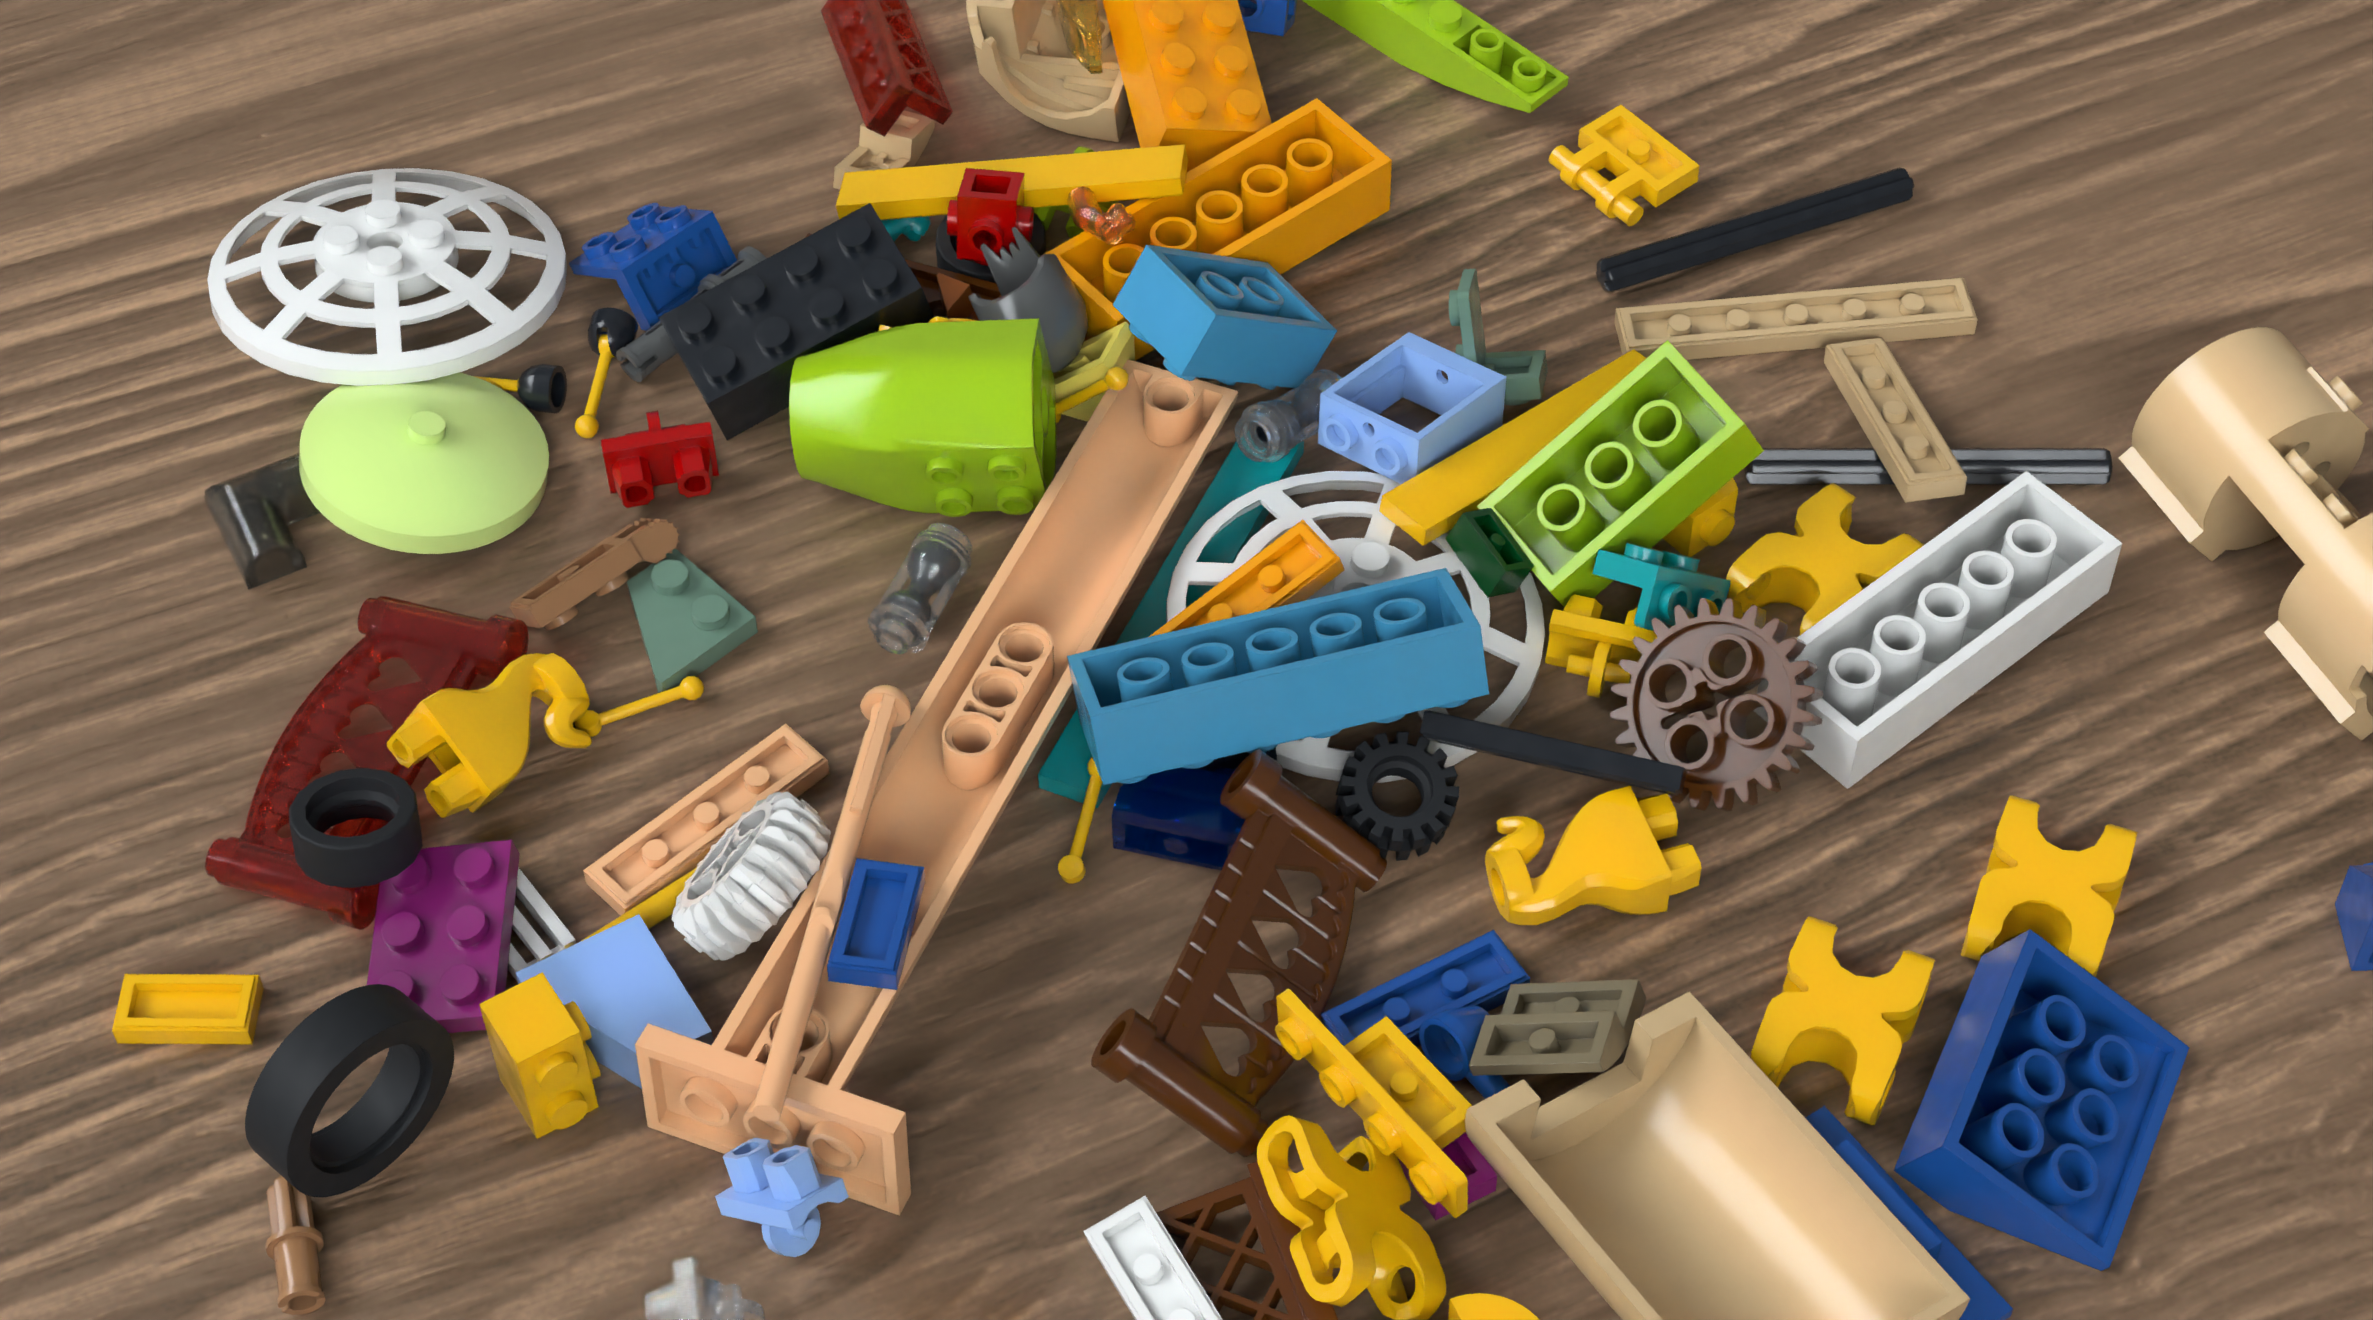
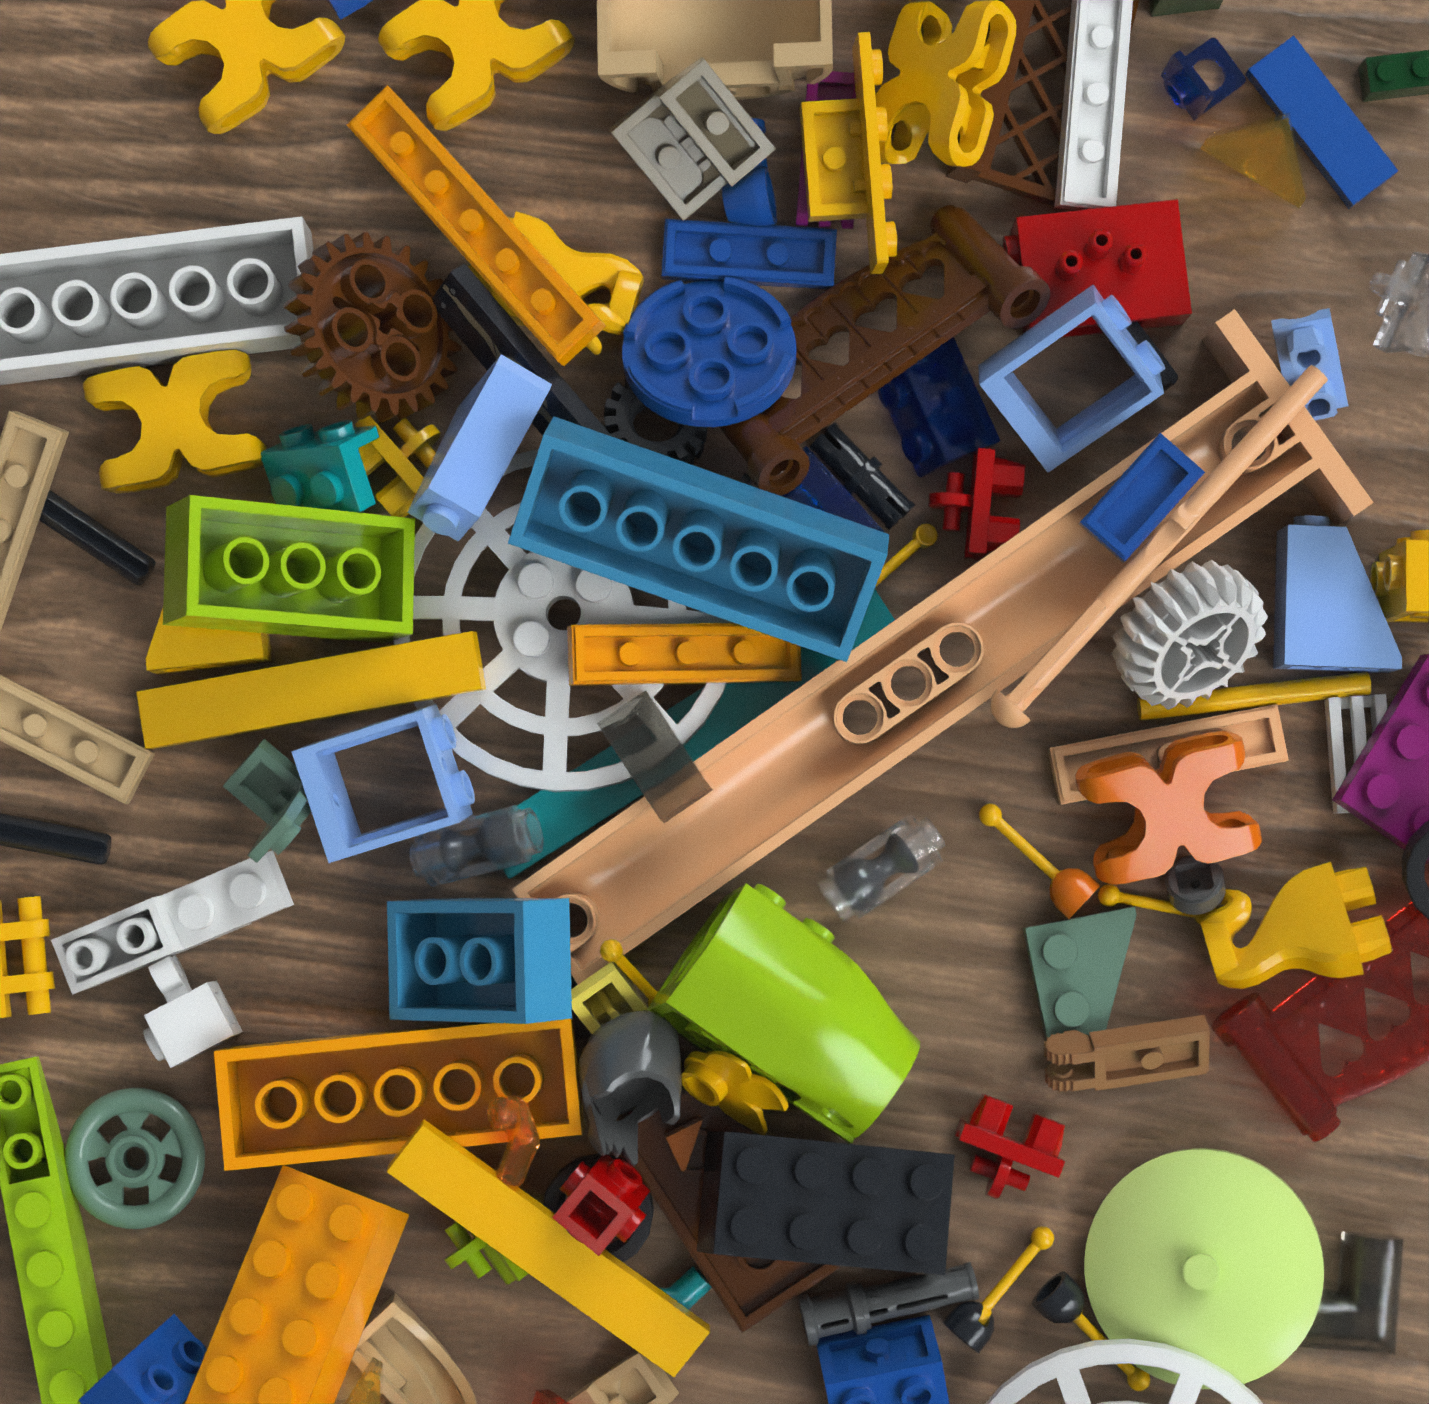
camera: 150 degrees left, 35 degrees up
(613, 726) = (1195, 886): none -> dark grey tile
(679, 757) = (1168, 807): none -> orange piece
(732, 667) = (1068, 887): none -> hinge
(1003, 989) = (1057, 445): none -> light blue window
(1042, 906) = (988, 478): none -> red hips
(1049, 1165) = (1120, 251): none -> red piece
(1121, 957) = (938, 410): none -> clear blue bracket
(1158, 874) = (862, 475): none -> black pin
(1188, 525) = (654, 756): none -> clear smoke tile
(1393, 869) = (709, 352): none -> blue tile
(1401, 107) = (165, 1197): none -> sand green plate
(1434, 200) = (190, 1019): none -> white brick
(1489, 552) = (434, 584): dark green piece -> none
(1511, 243) = (172, 922): none -> white slope
(1538, 652) = (478, 448): none -> light blue slope
(1700, 842) = (476, 226): none -> light orange tile

